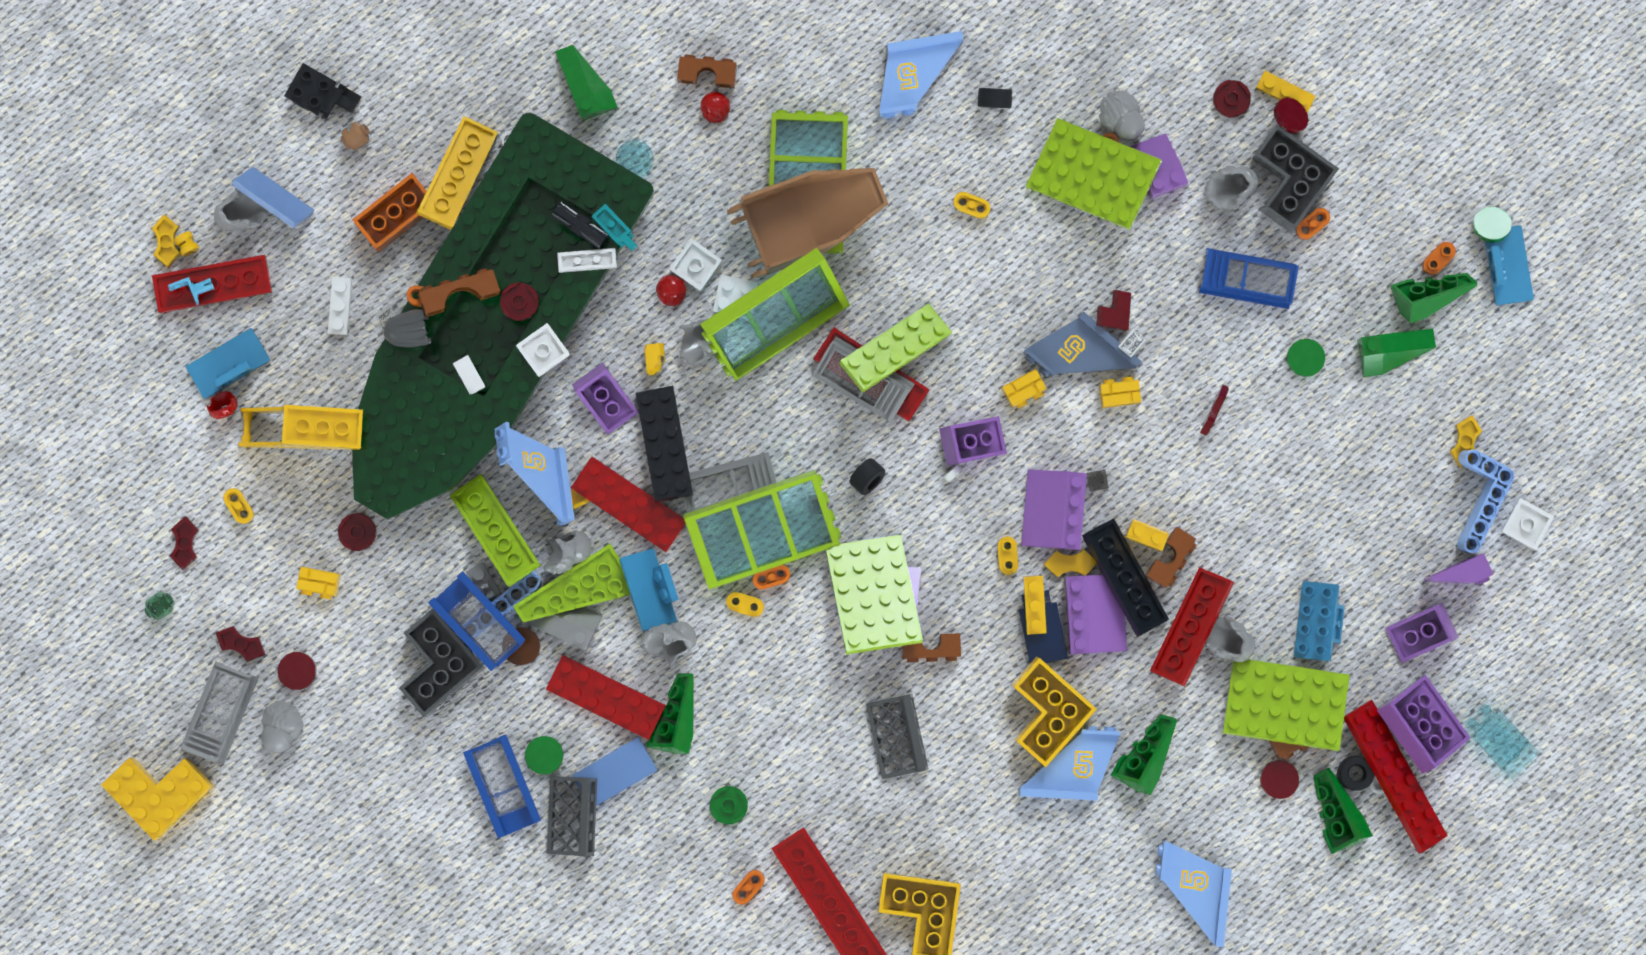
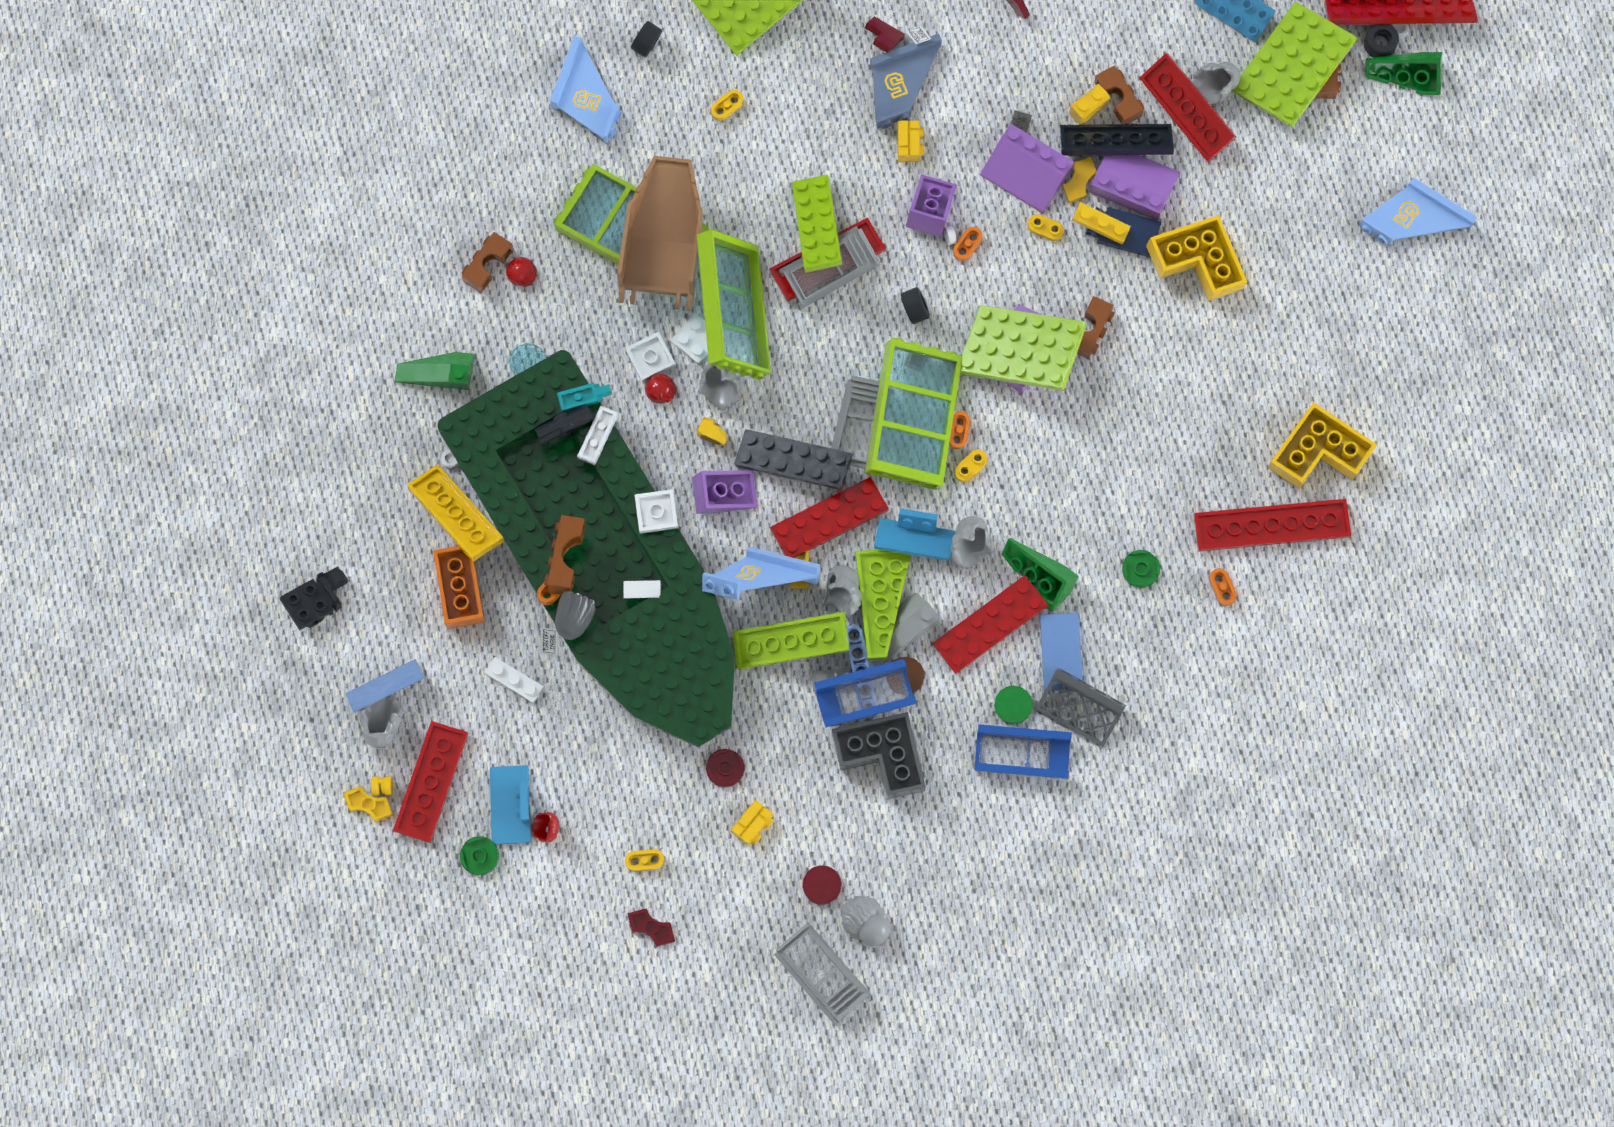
camera: 60 degrees left, 10 degrees down
(154, 804) = (877, 1073): yellow brick -> none
(159, 605) = (696, 977): clear green head -> none
(169, 361) = (479, 855): none -> green tile
(195, 289) = (427, 796): medium azure bracket -> none
(232, 640) = (762, 929): dark red tile -> none
(309, 427) = (612, 750): yellow piece -> none
(355, 136) = (370, 587): medium nougat head -> none
(519, 301) = (601, 511): dark red tile -> none
(913, 731) = (1158, 379): dark grey fence -> none
(953, 493) = (967, 244): none -> orange plate
(1075, 769) = (1262, 261): light blue piece -> none
(1120, 393) = (955, 67): yellow brick -> none
(1144, 764) = (1284, 204): green wedge -> none
(1279, 779) = (1355, 105): dark red tile -> none

